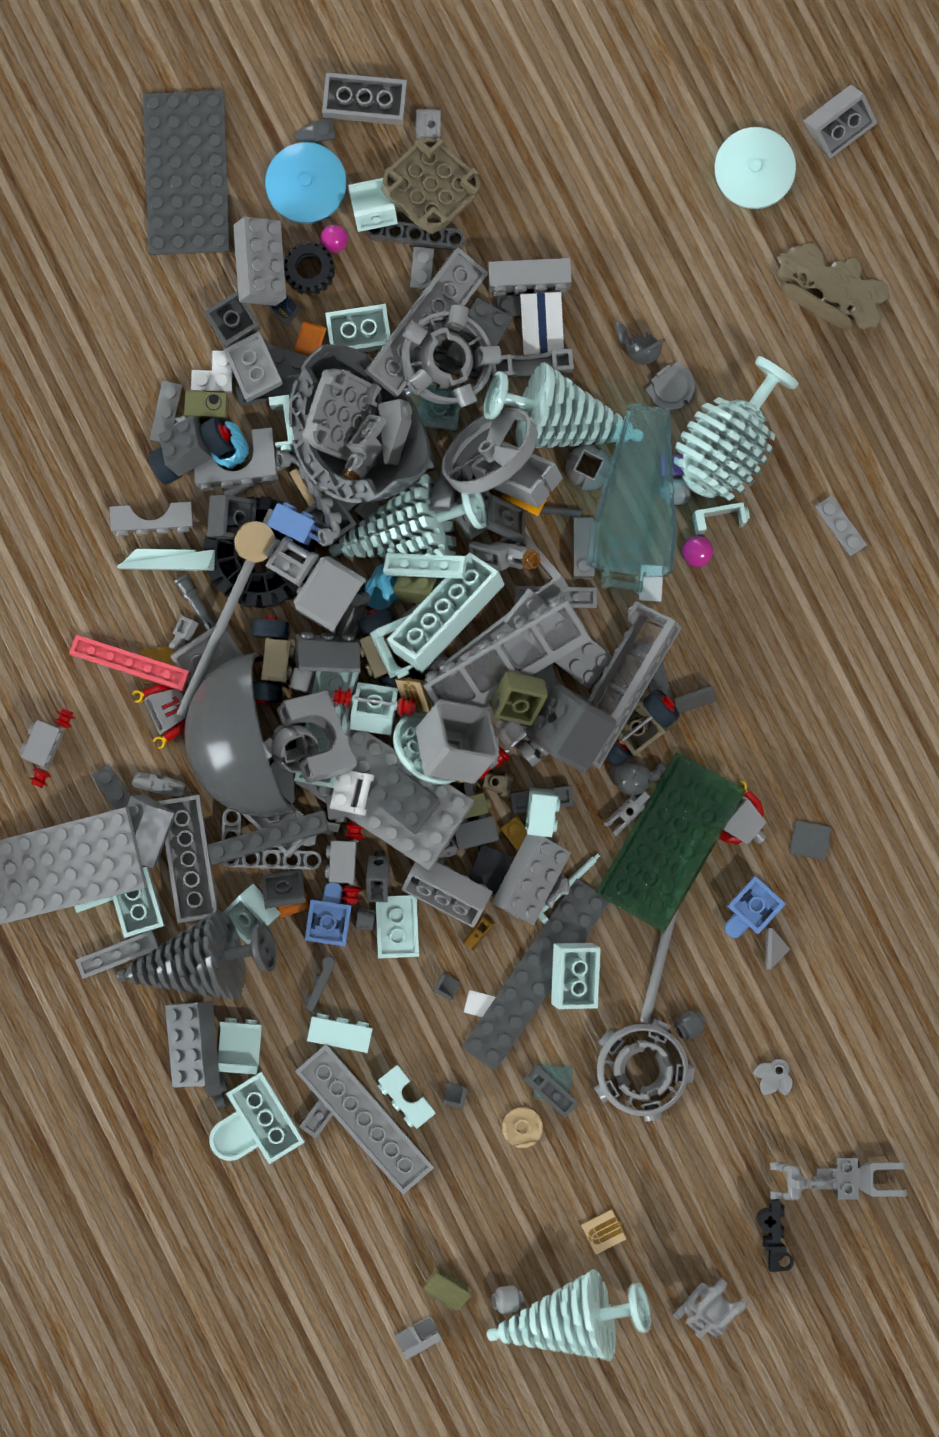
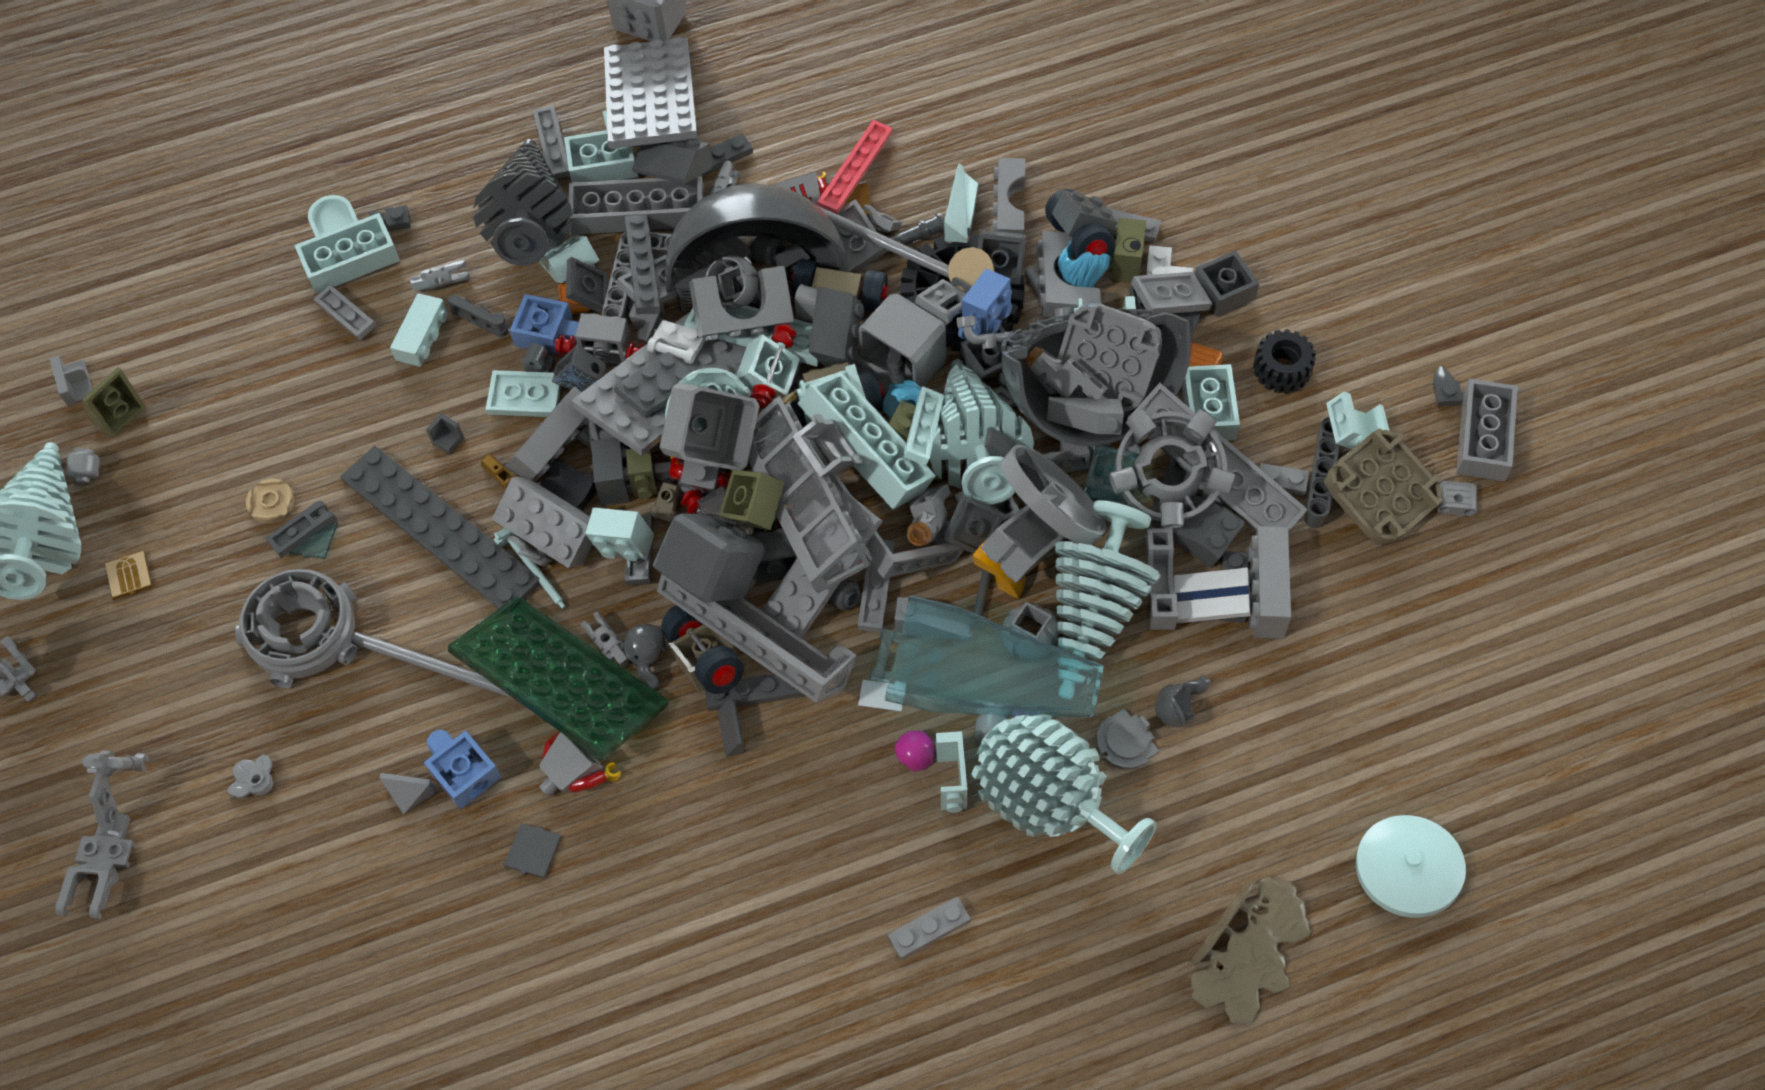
camera: 100 degrees right, 25 degrees down
(43, 745) = (778, 88): light grey brick -> none
(186, 173) = (1396, 260): dark grey plate -> none
(192, 1044) = (437, 190): brick -> none
(239, 1046) = (428, 241): light aqua panel -> none
(259, 261) = (1293, 307): light grey brick -> none
(279, 1028) = (439, 276): none -> light grey hinge
(286, 310) = (1242, 340): sticker -> none
(306, 183) = (1385, 371): medium azure dish -> none
(334, 238) = (1318, 387): dark pink piece -> none
(364, 1119) = (319, 344): light grey plate -> none
(415, 1112) = (347, 375): light aqua arch -> none
(455, 1095) = (321, 435): dark grey panel -> none
(468, 629) = (832, 444): none -> light grey piece
(478, 1003) = (422, 469): white sticker -> none
(575, 975) = (423, 558): light aqua brick -> none
(689, 1025) = (337, 684): dark grey head -> none
(776, 1232) = (67, 748): black plate -> none
(840, 121) = (1476, 981): light grey slope -> none

